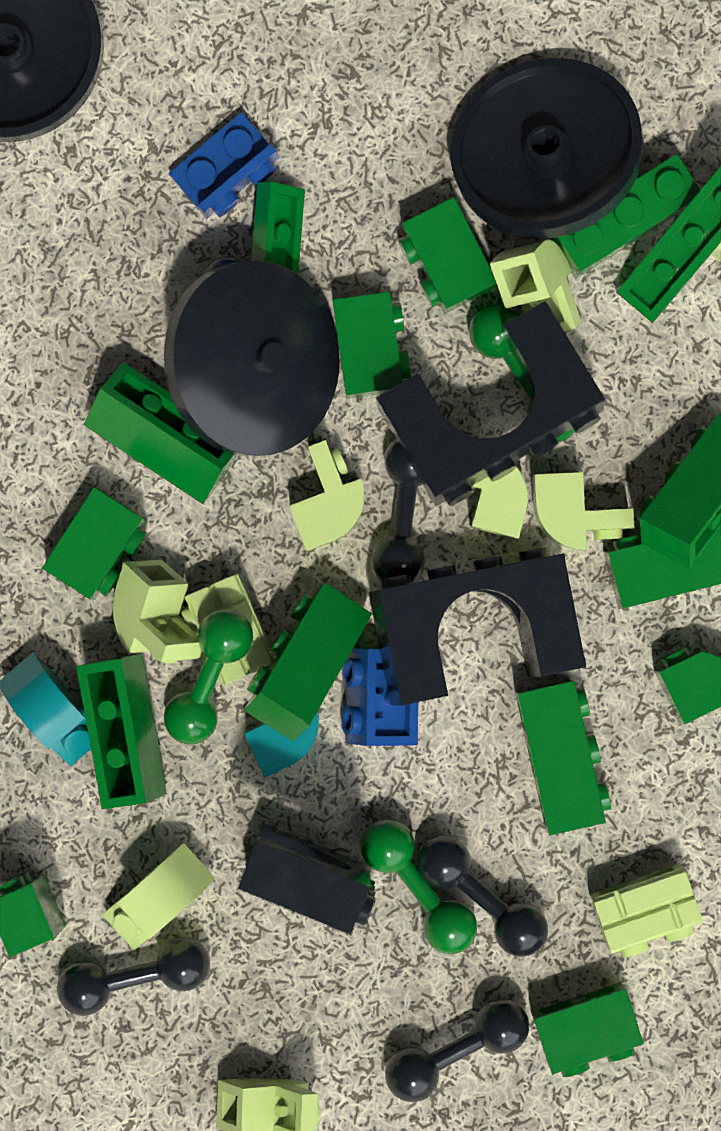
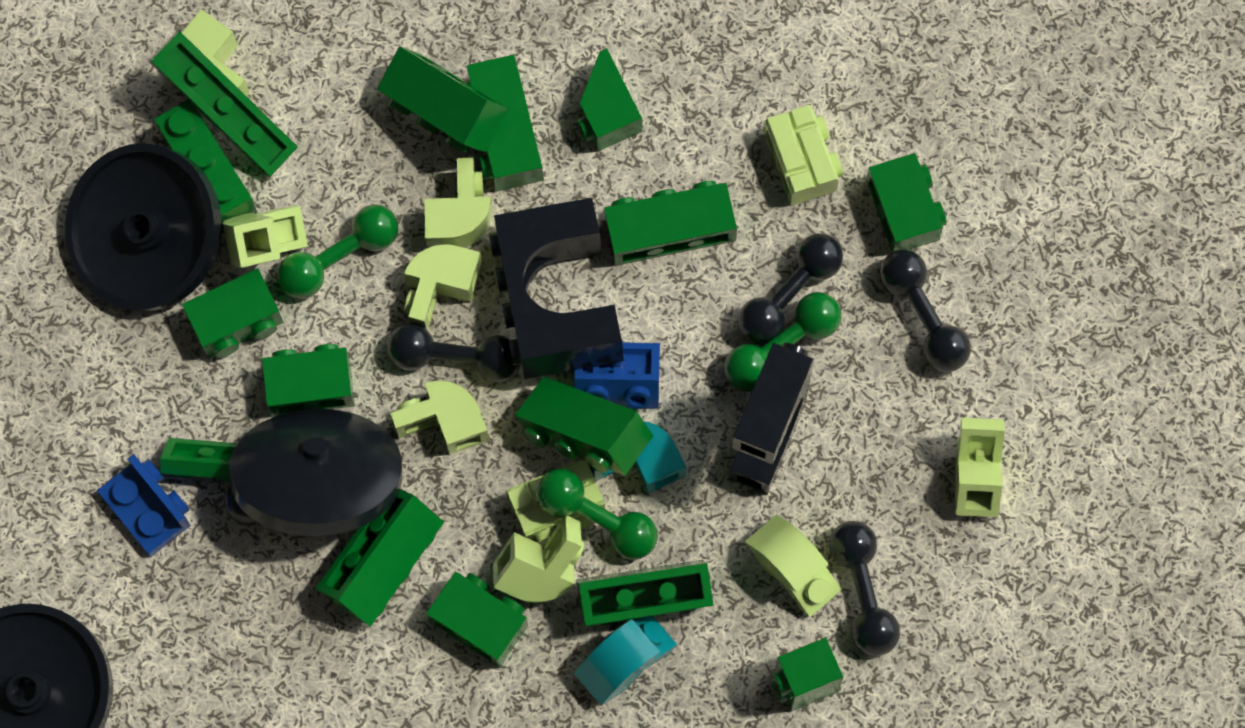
camera: 90 degrees left, 15 degrees down
(453, 461) = (409, 303): black arch -> none

